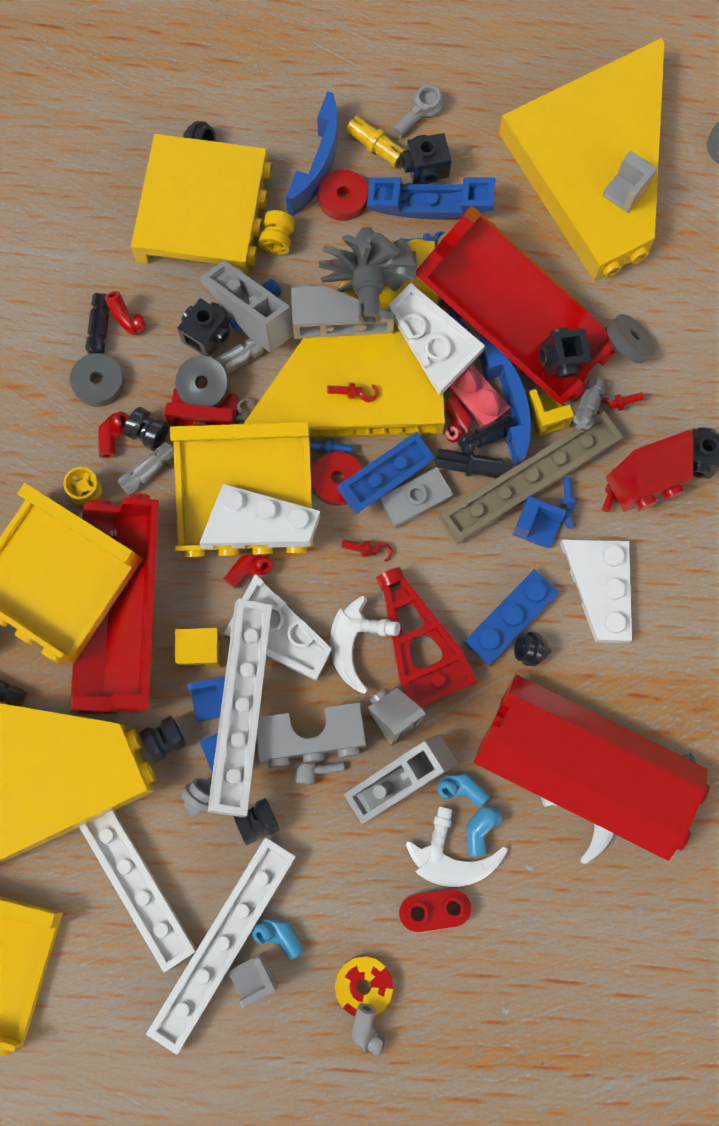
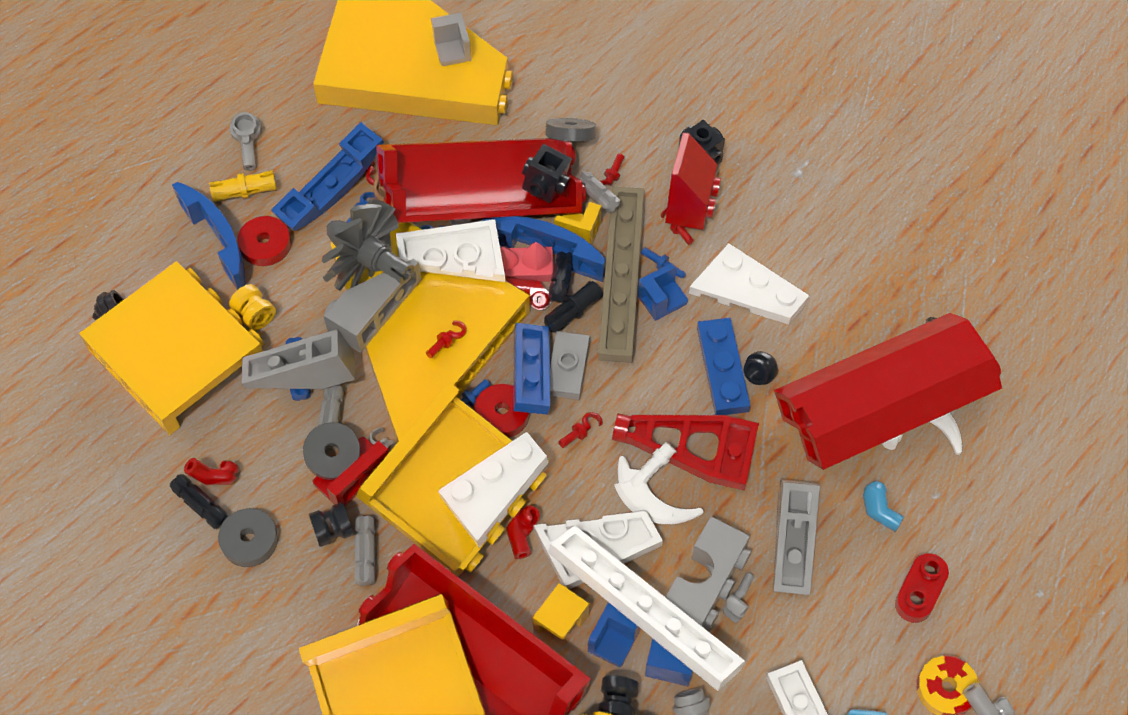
camera: 50 degrees left, 15 degrees down
(79, 481) = (335, 604): yellow wheel -> none
(109, 432) = (304, 557): red arm -> none
(204, 327) = (284, 415): black brick -> none
(257, 822) = (749, 679): black wheel -> none
(395, 714) = (744, 493): light grey slope -> none
(427, 158) = (296, 158): black brick -> none
(447, 871) = (892, 559): white piece -> none
(462, 785) = (835, 493): dark azure arm -> none

